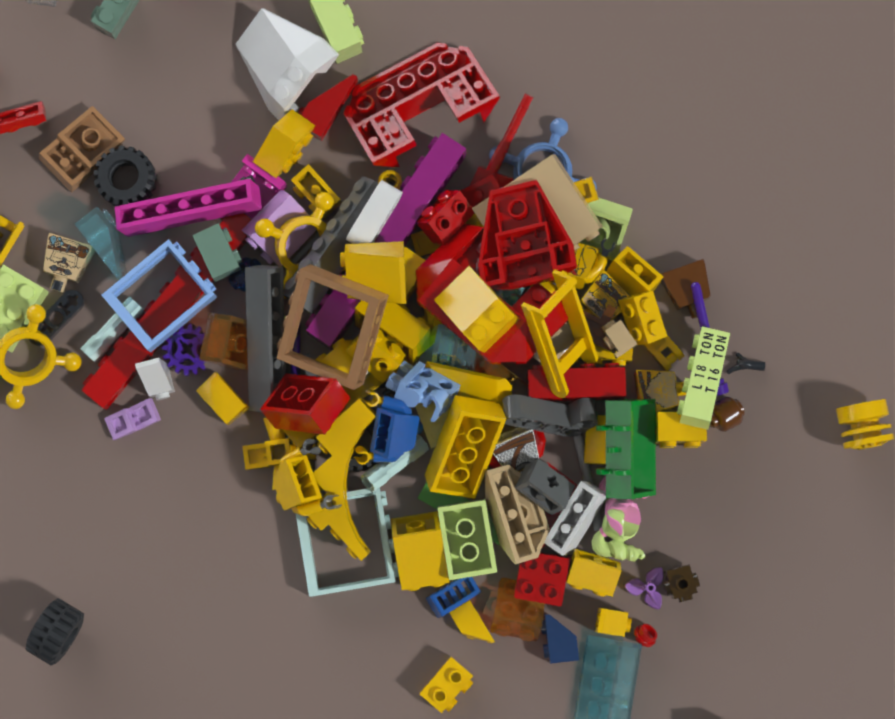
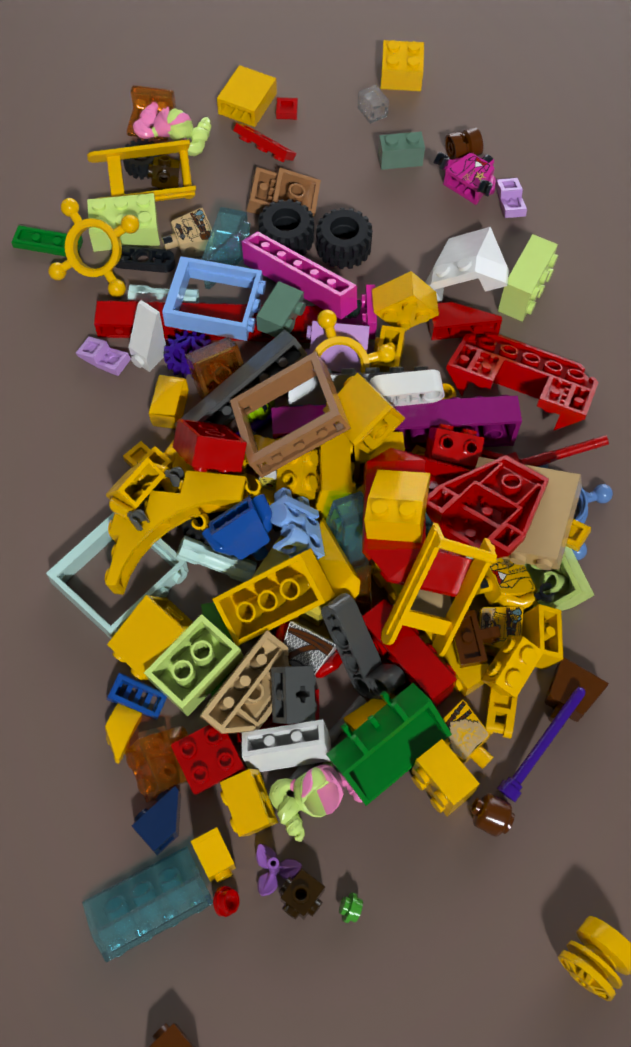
camera: 50 degrees right, 20 degrees down
(164, 118) = (344, 224): none -> black tyre
(446, 685) = (46, 749): yellow brick -> none
(618, 337) = (476, 653): tan brick -> none
(704, 377) = (508, 756): yellowish green brick -> none
(712, 556) = (350, 908): none -> bright green plate
(744, 363) = (552, 800): black bar -> none

